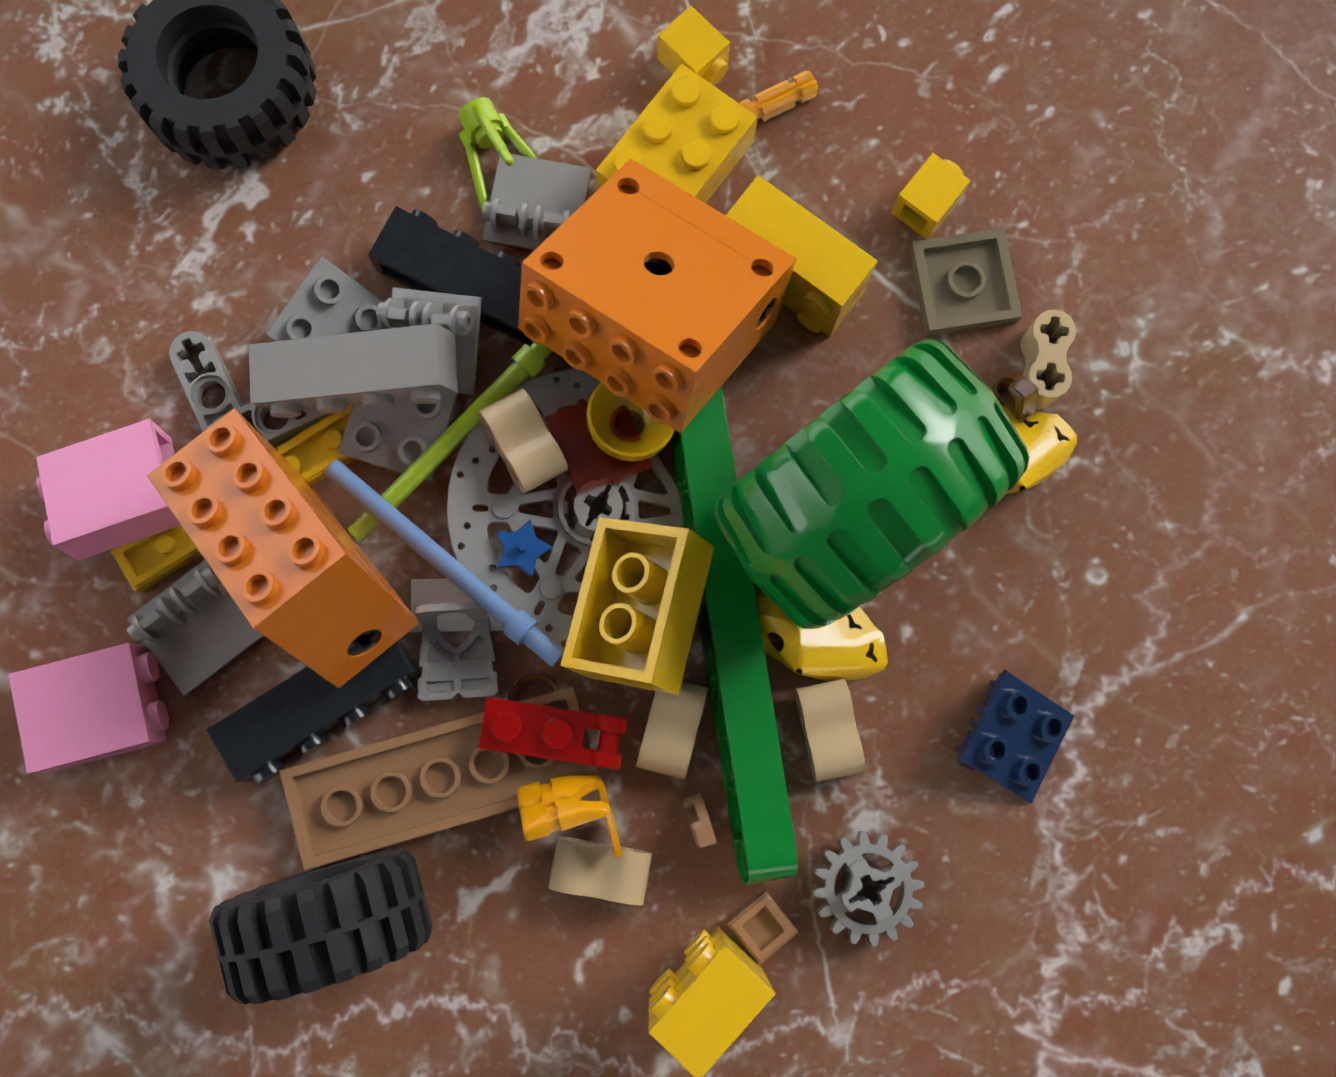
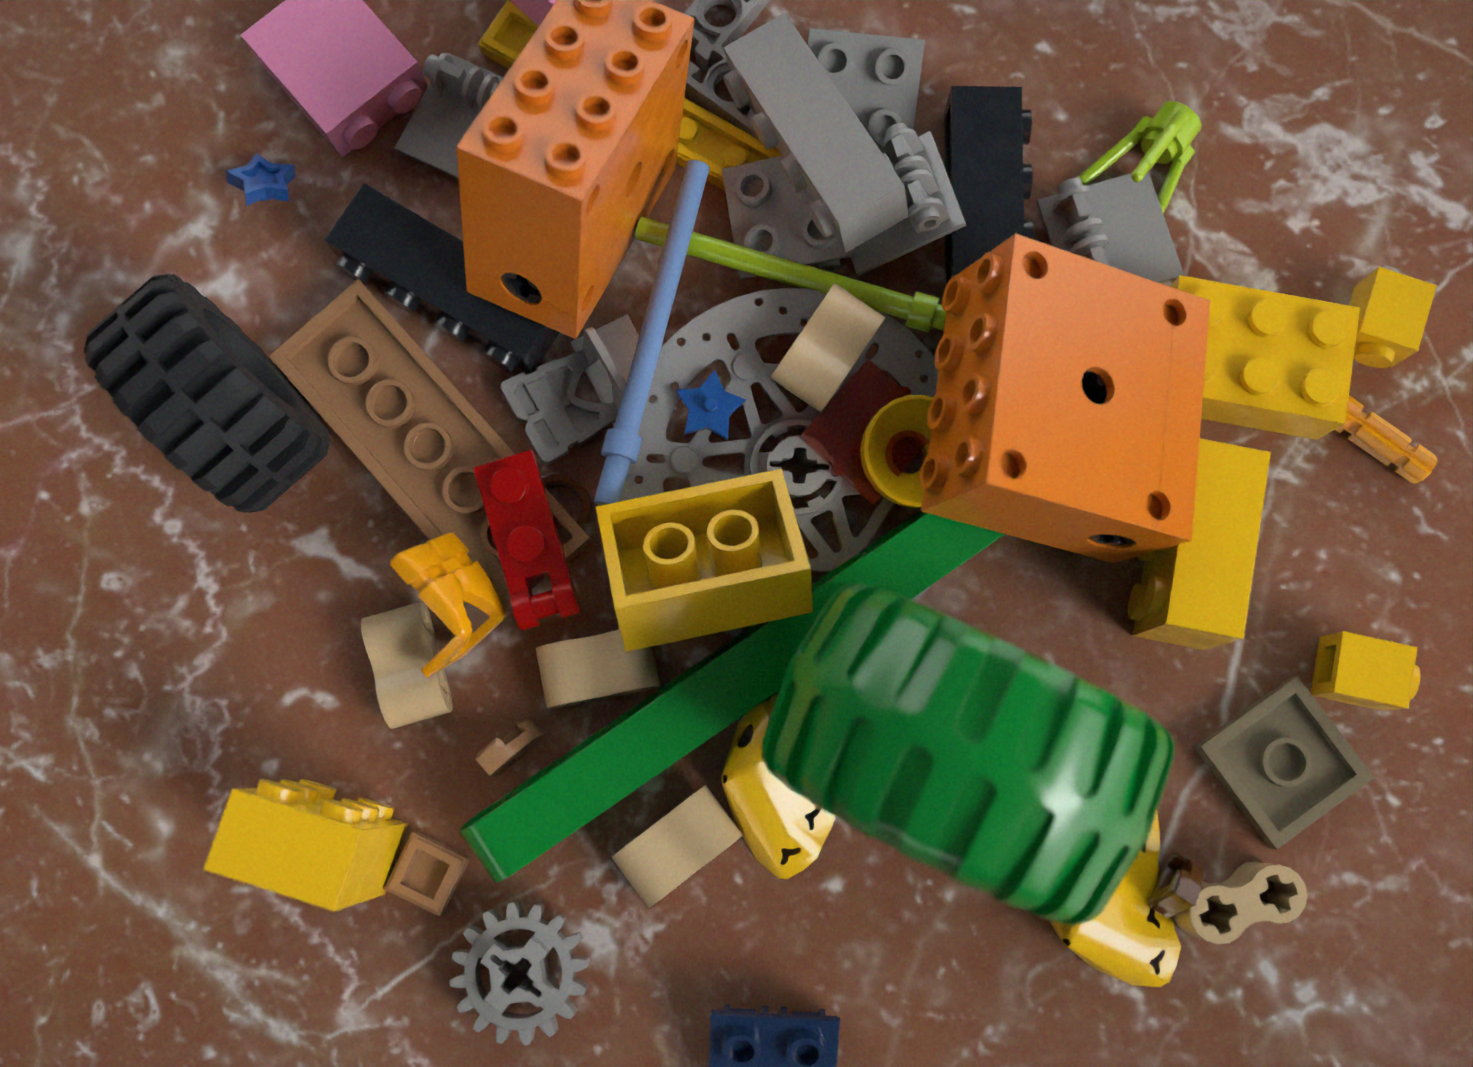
camera: 70 degrees right, 0 degrees up
(154, 813) = (262, 180): none -> blue piece

